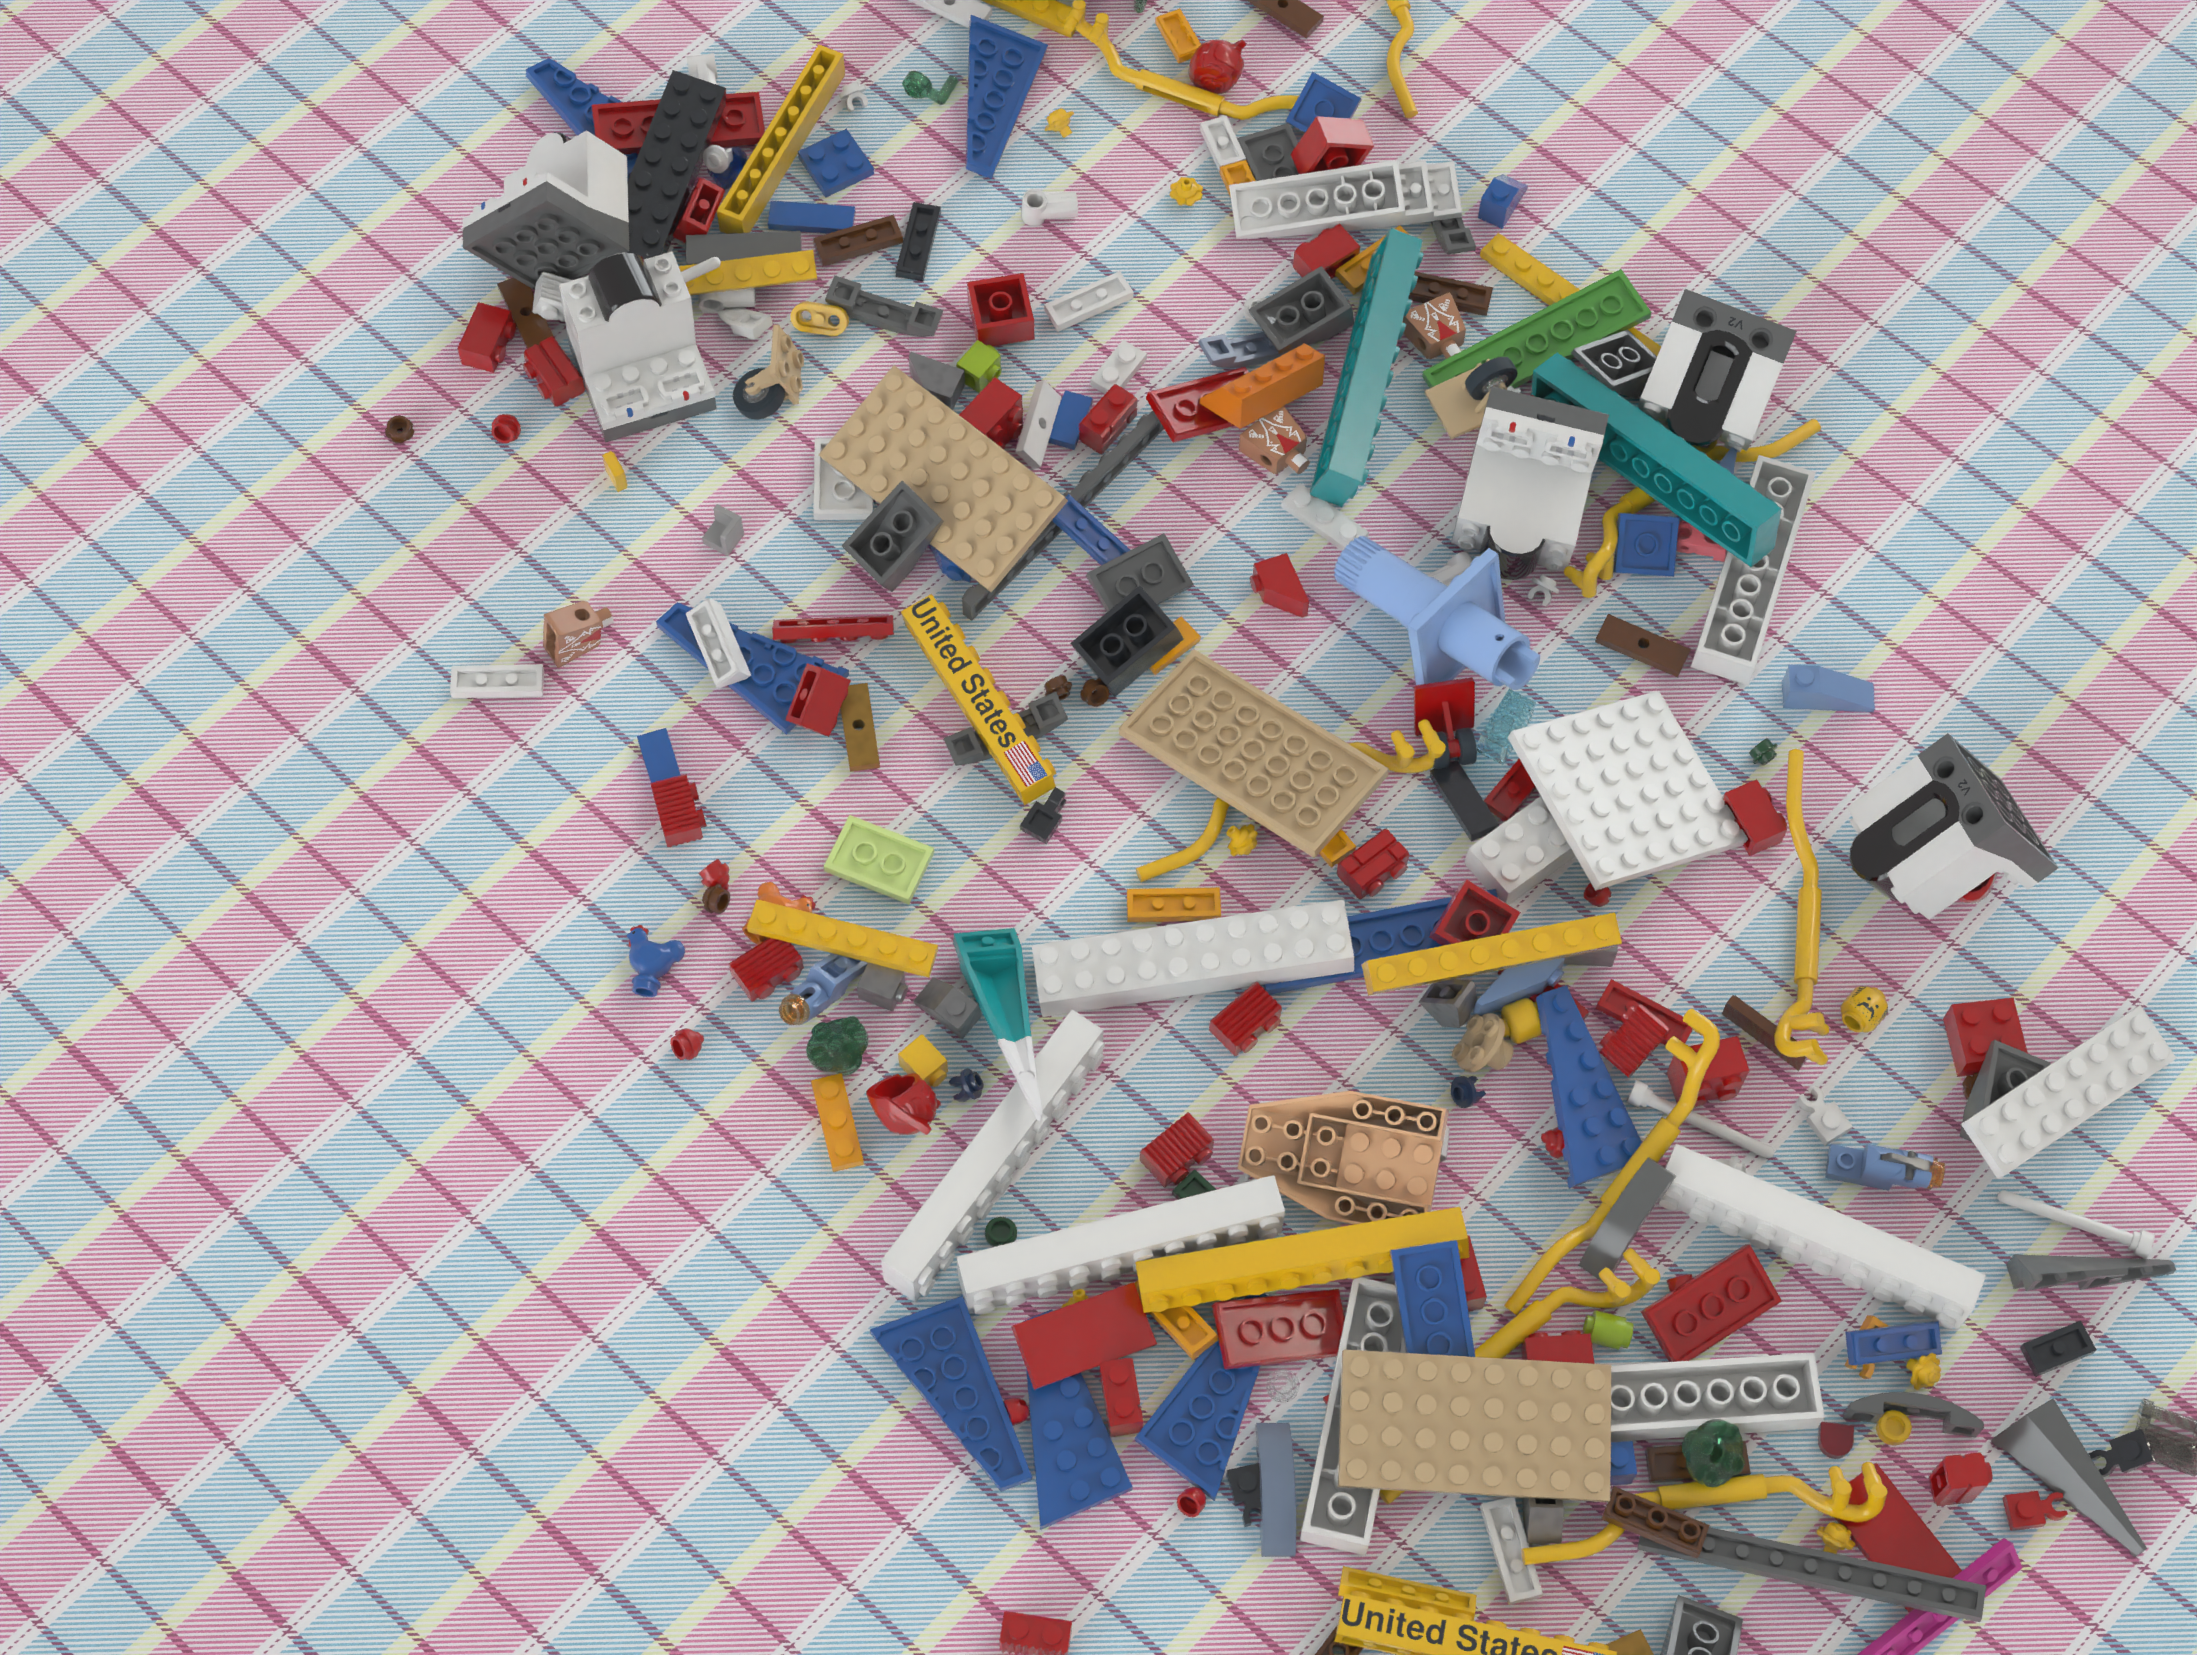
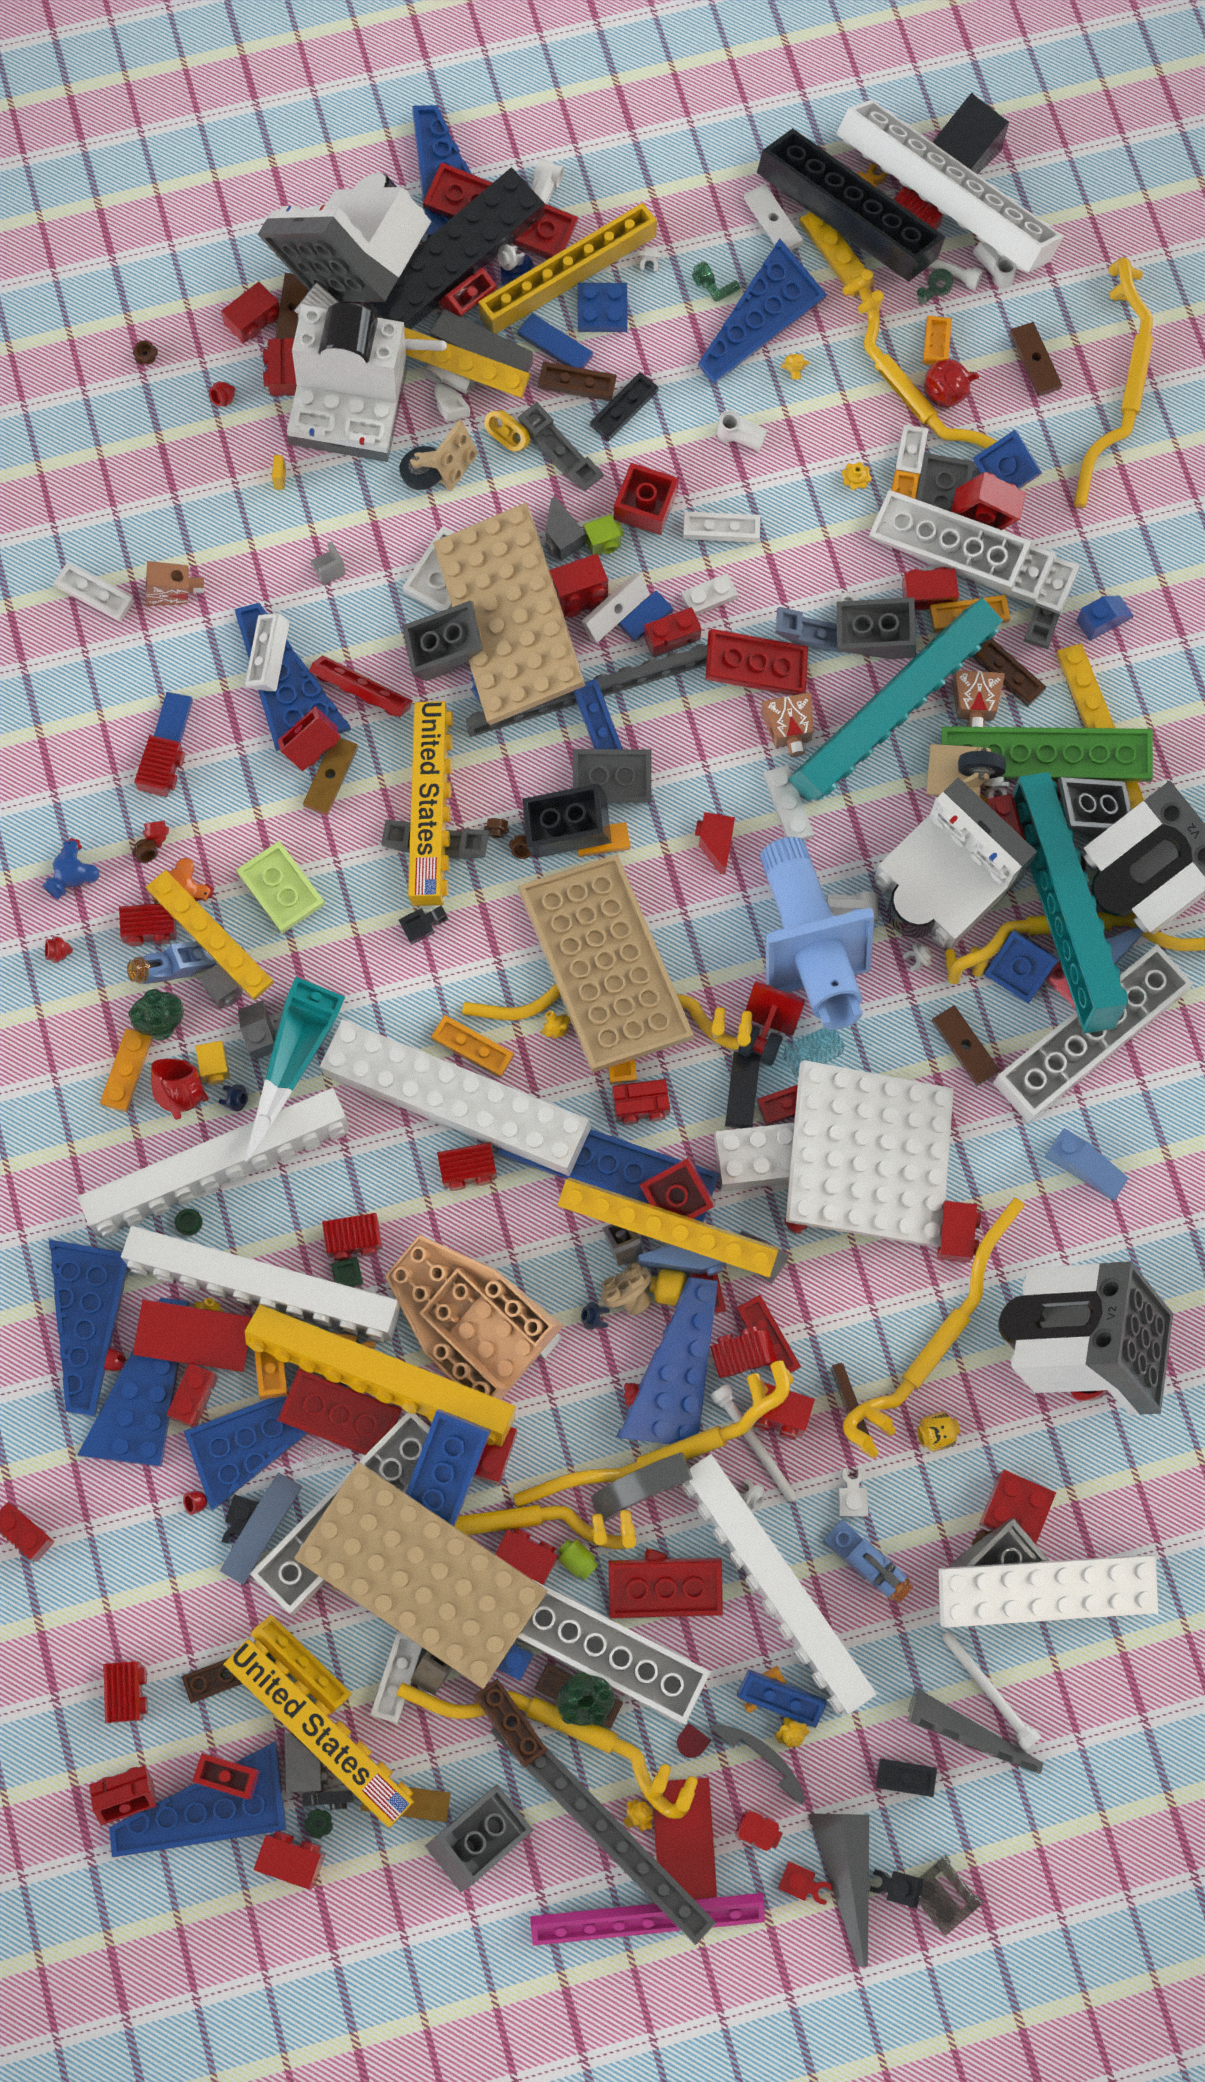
camera: 30 degrees right, 10 degrees up
(1268, 387) = (807, 674): orange slope -> none
(1763, 752) = (1002, 1184): dark green plate -> none
(1893, 1427) = (742, 1759): yellow tile -> none

